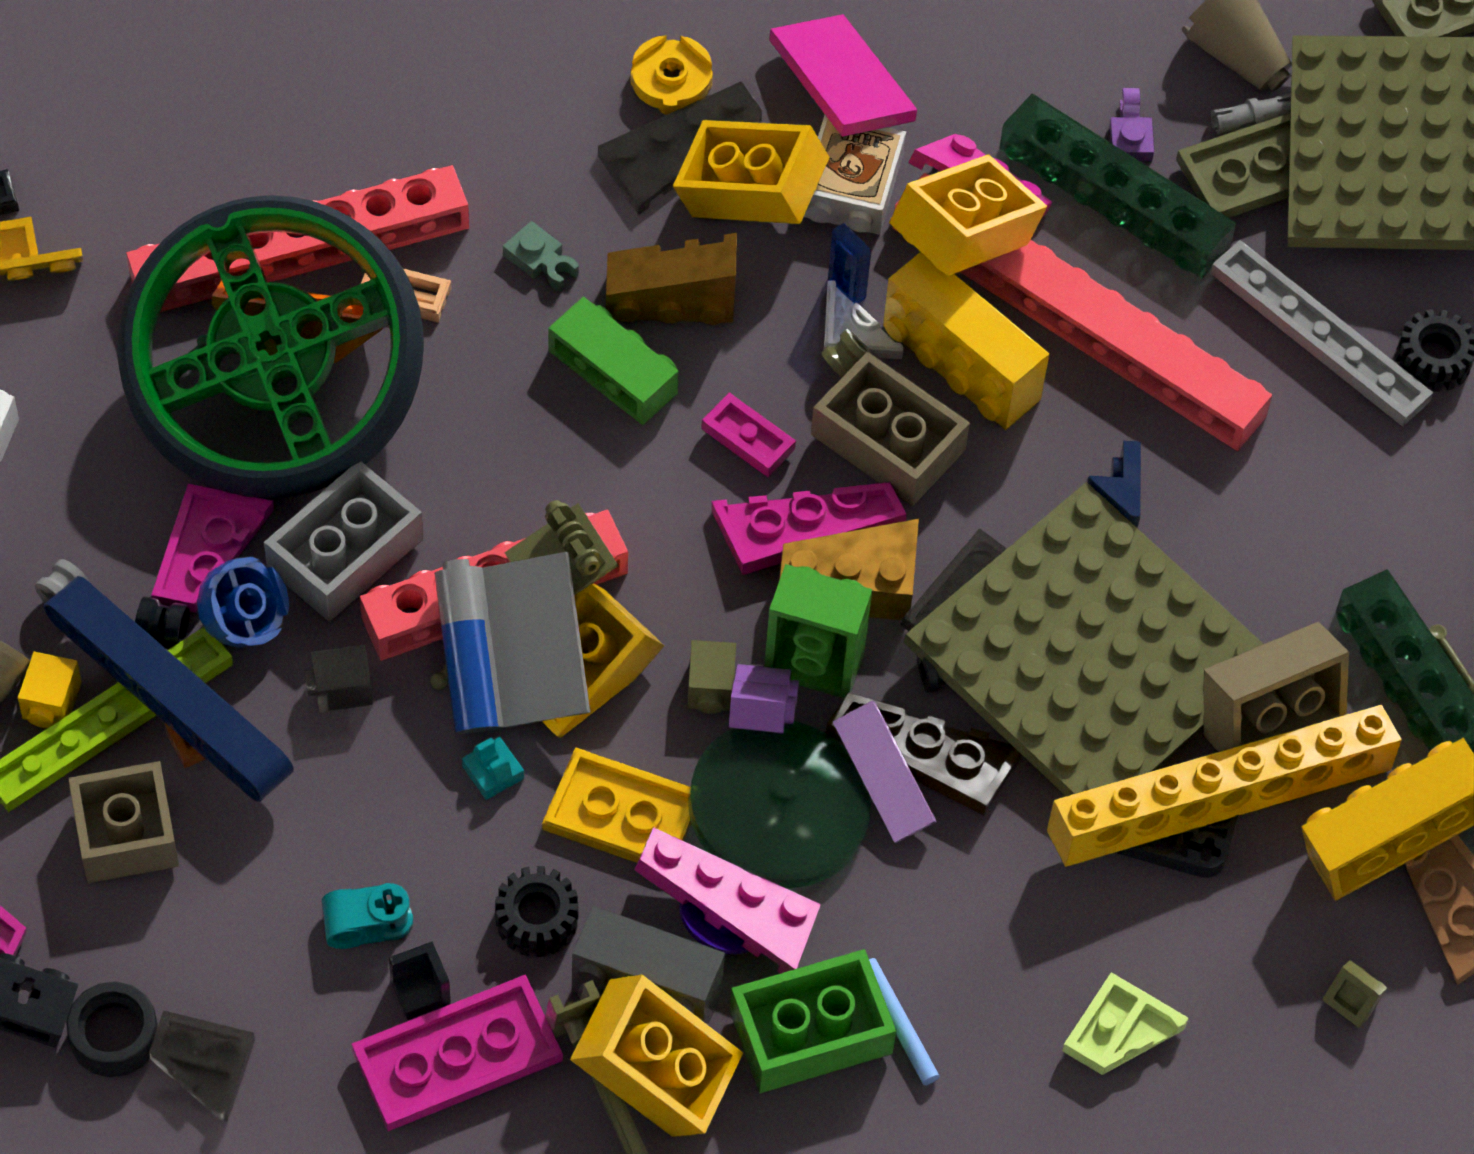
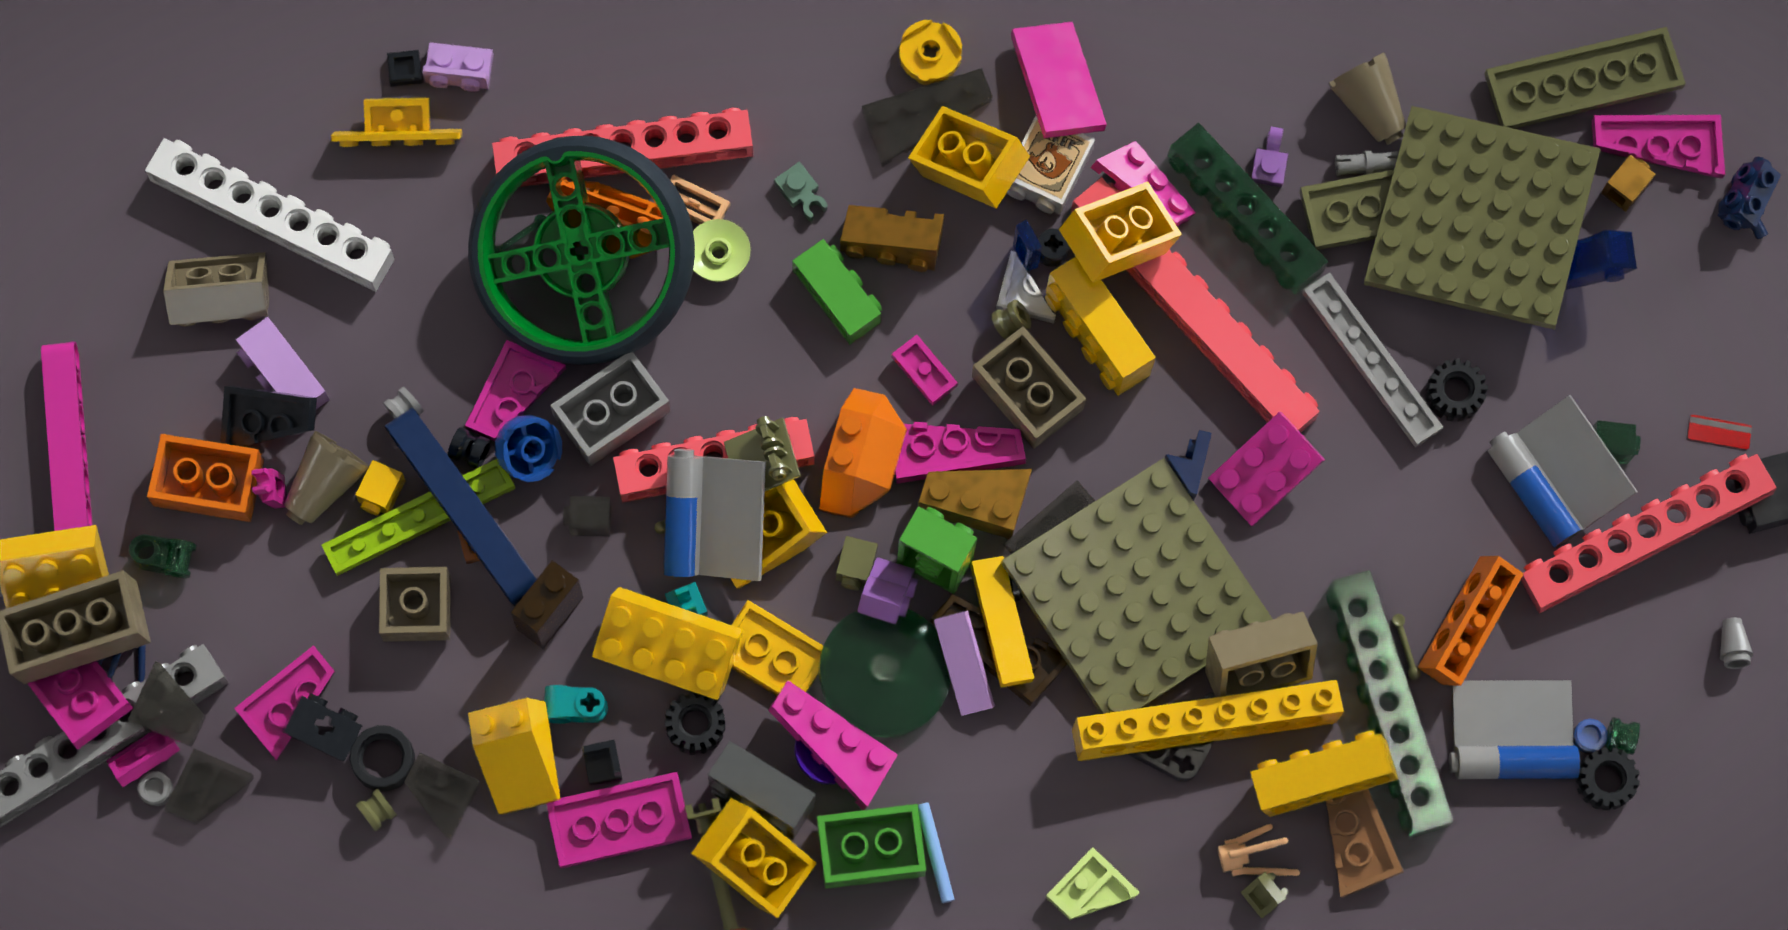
camera: 10 degrees right, 15 degrees up
(63, 181) = (458, 66): none -> lavender bracket
(116, 1096) = (376, 810): none -> olive wheel
(298, 987) = (516, 754): none -> yellow slope
(306, 787) = (547, 604): none -> dark brown brick
(457, 323) = (726, 237): none -> yellowish green dish
(479, 811) = (667, 643): none -> yellow brick
(689, 548) = (861, 454): none -> orange wedge
(884, 254) = (1051, 254): none -> black wheel
(922, 714) = (1002, 622): none -> yellow tile
(1221, 475) = (1266, 468): none -> dark pink plate
(1303, 950) = (1235, 854): none -> light nougat plant

